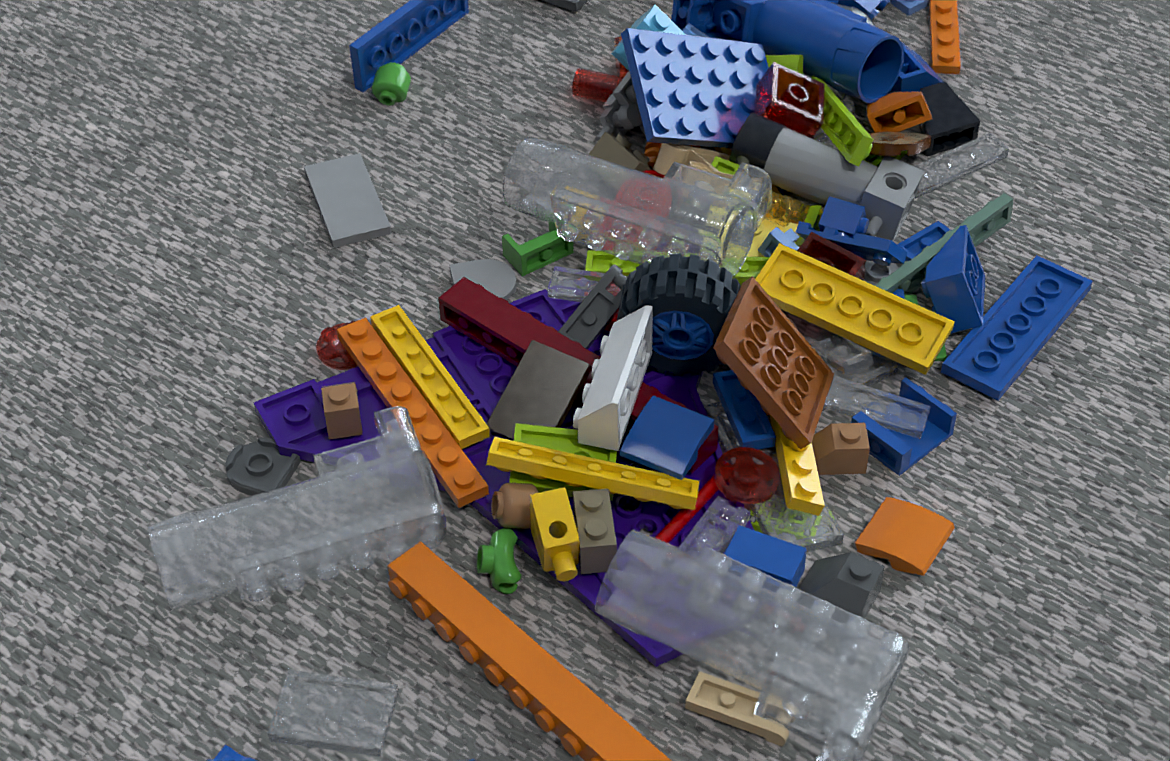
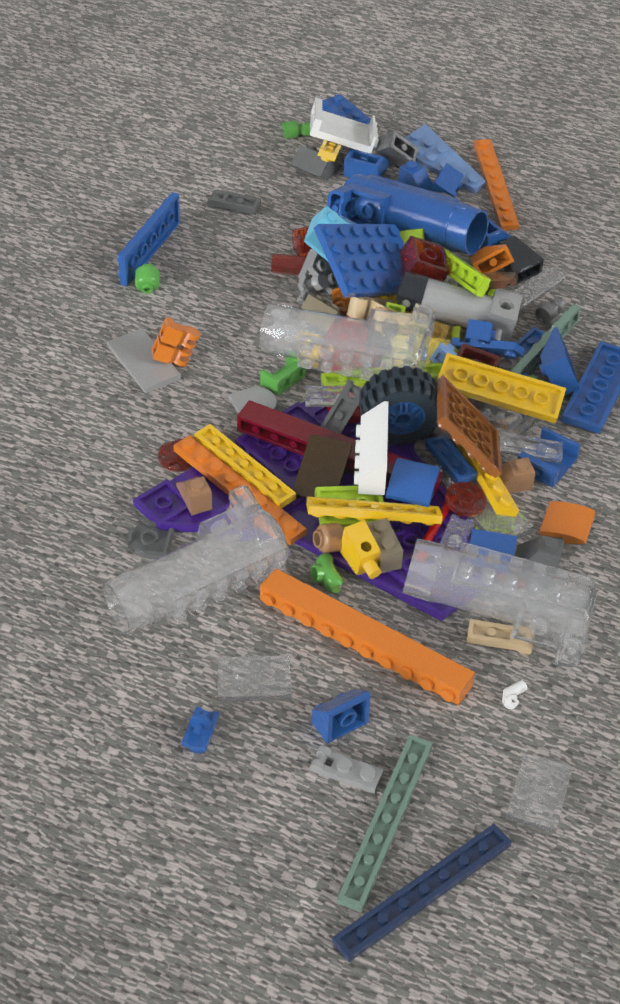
camera: 15 degrees left, 0 degrees up
(391, 180) = (175, 343): none -> orange legs
(970, 199) = (549, 311): none -> flat silver piece

